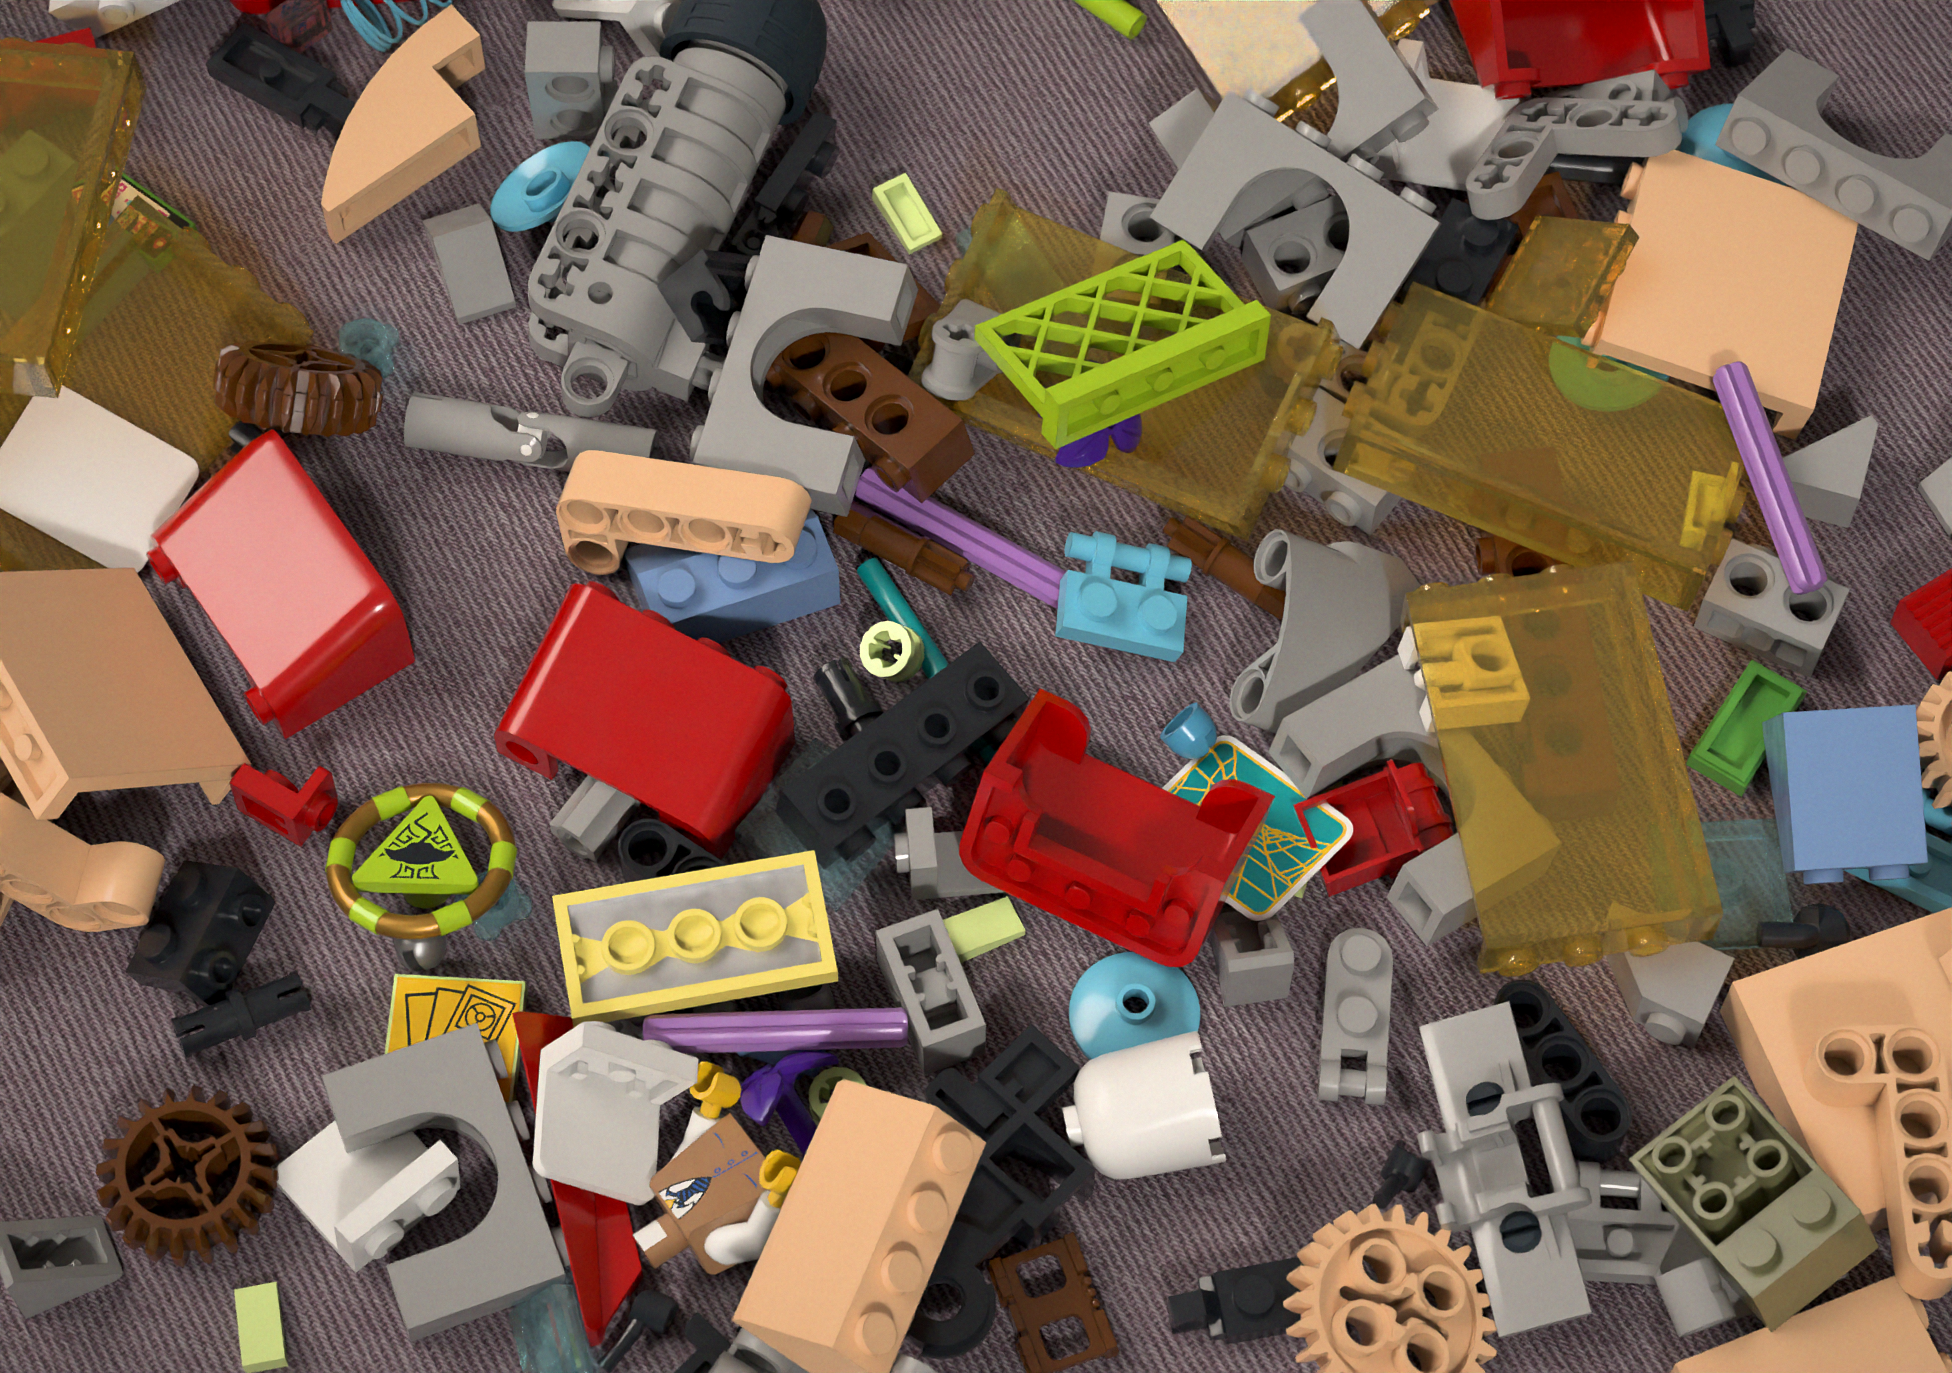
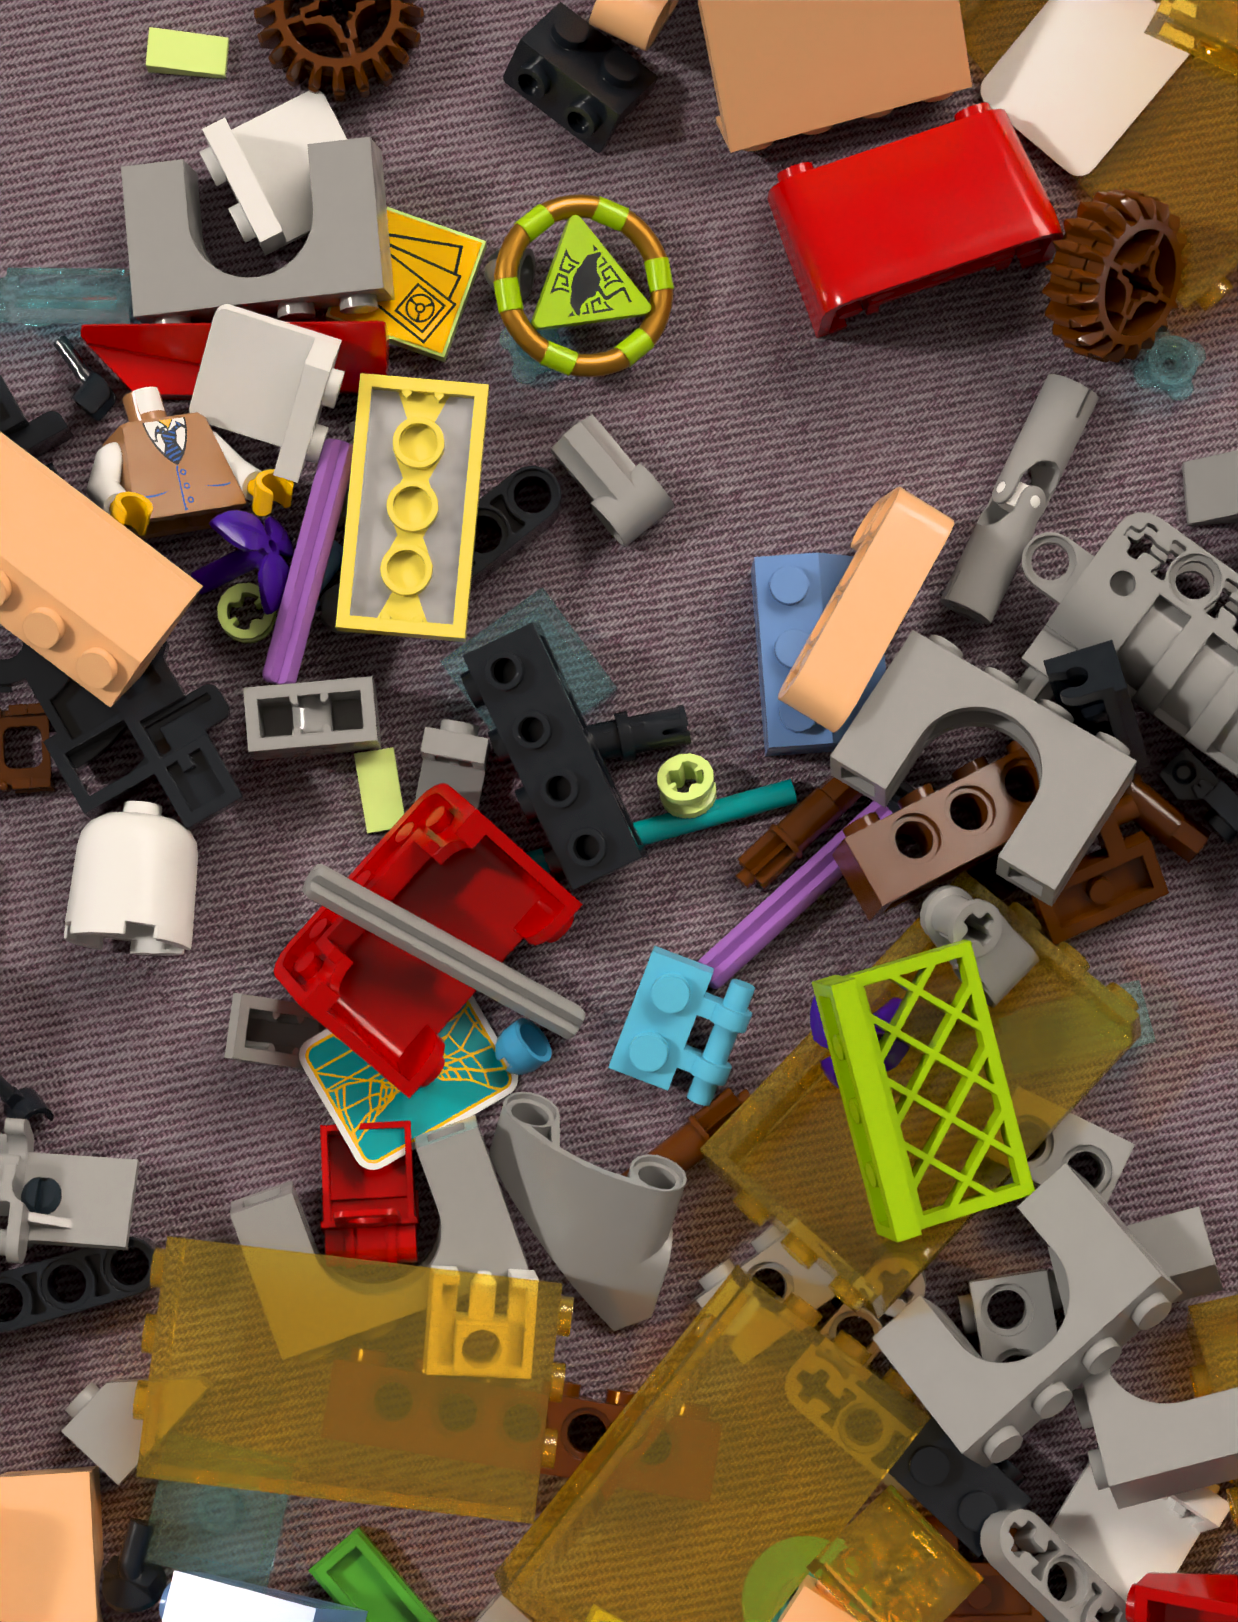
camera: 100 degrees right, 20 degrees up
(240, 1014) = (486, 95): black pin -> none
(279, 805) = (691, 168): red bracket -> none
(650, 715) = (666, 527): red windscreen -> none
(906, 213) = (1187, 941): yellowish green piece -> none
(1105, 1026) = (220, 902): medium azure dish -> none
(1123, 805) = (443, 951): none -> light grey axle
(1356, 1016) = (188, 1115): light grey plate -> none

